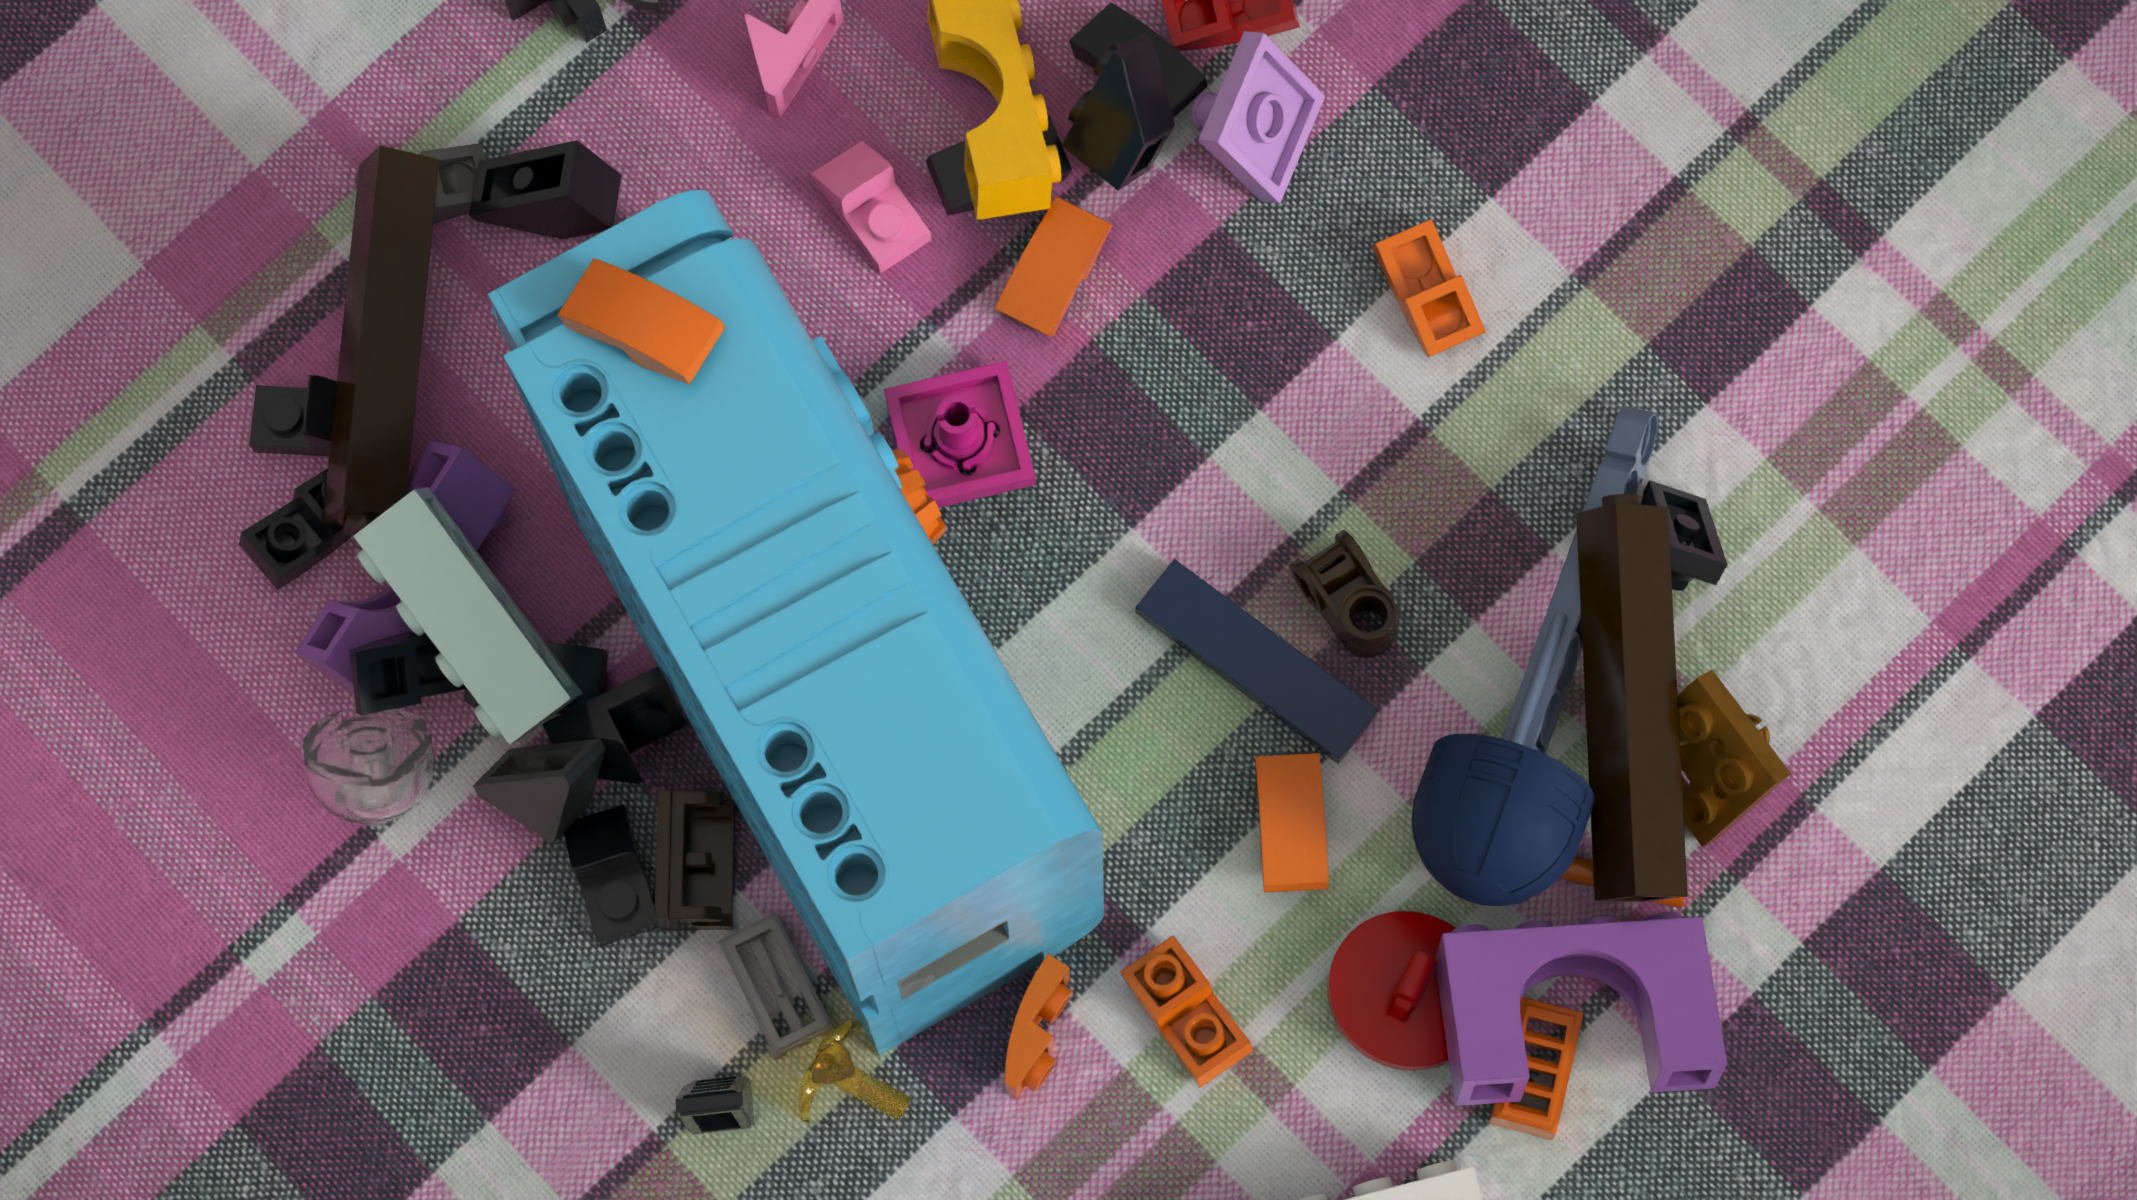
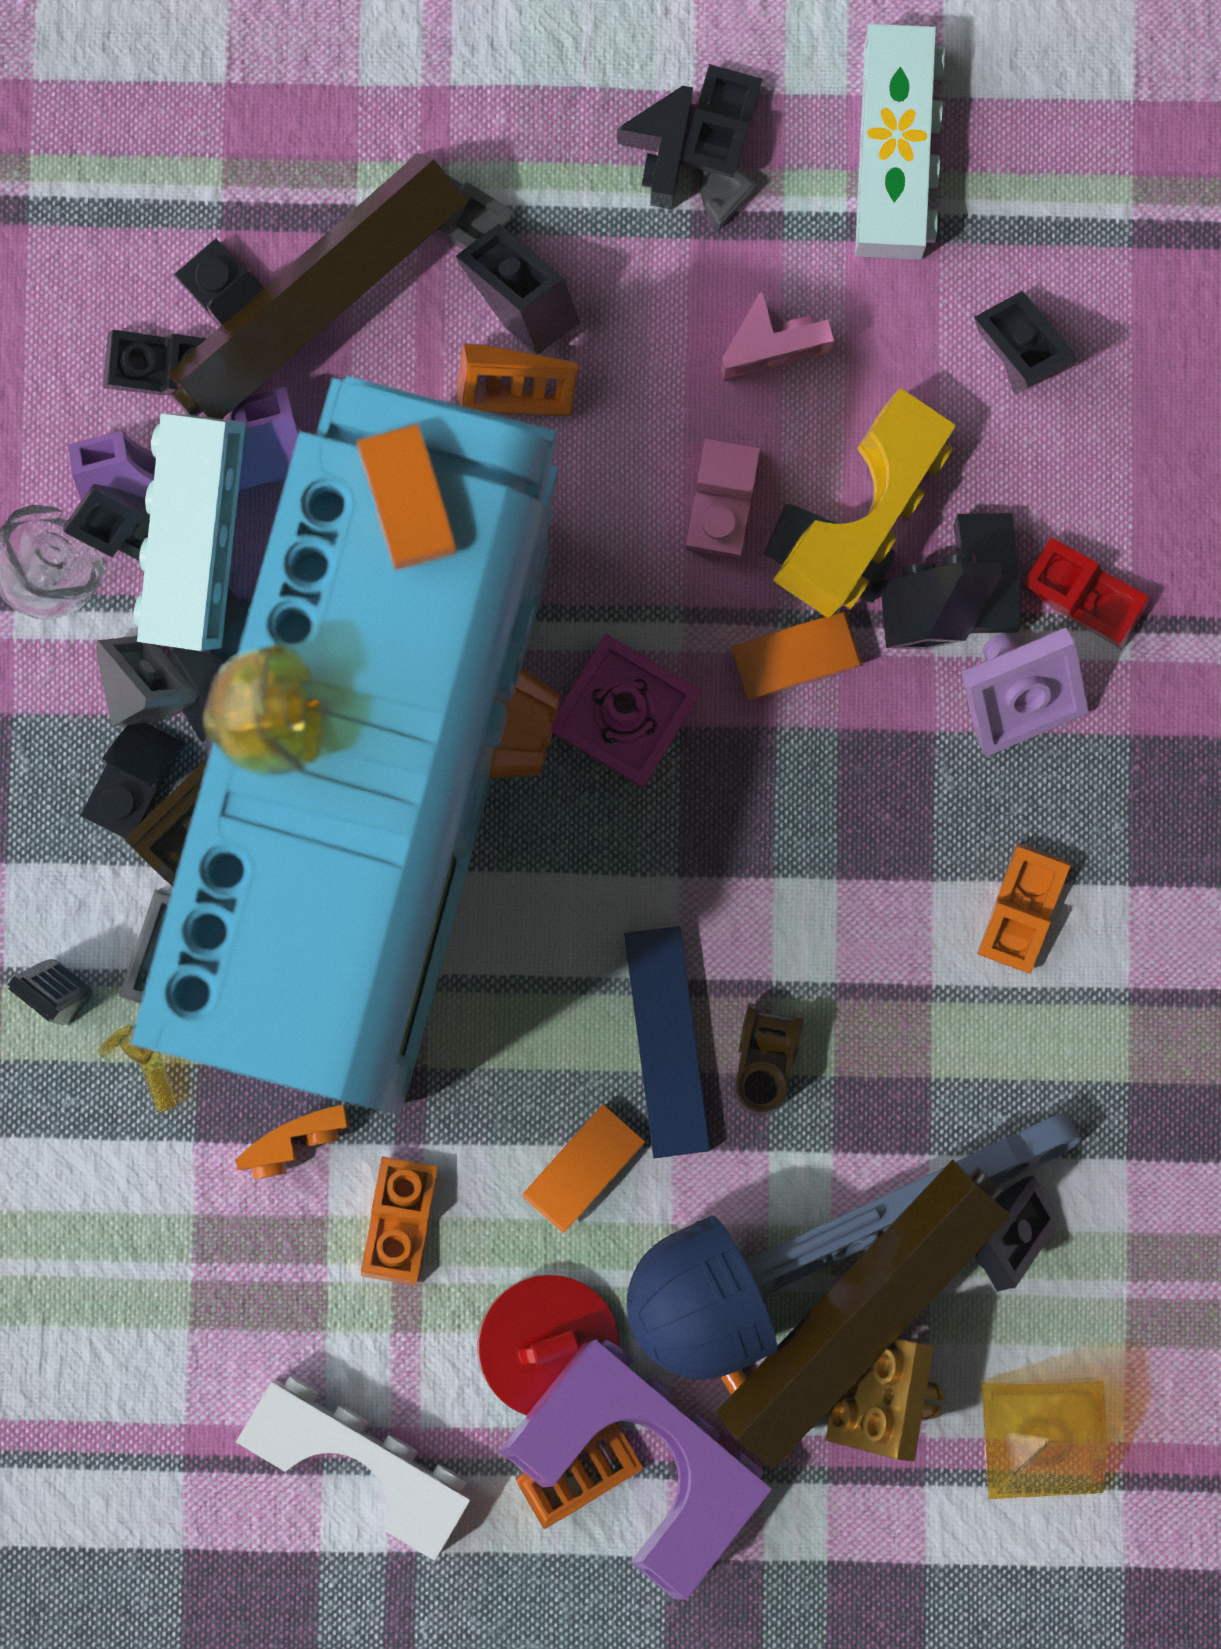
camera: 40 degrees right, 10 degrees up
(693, 588) = (263, 714): none -> clear yellow cylinder
(1869, 671) = (1044, 1437): none -> clear yellow slope

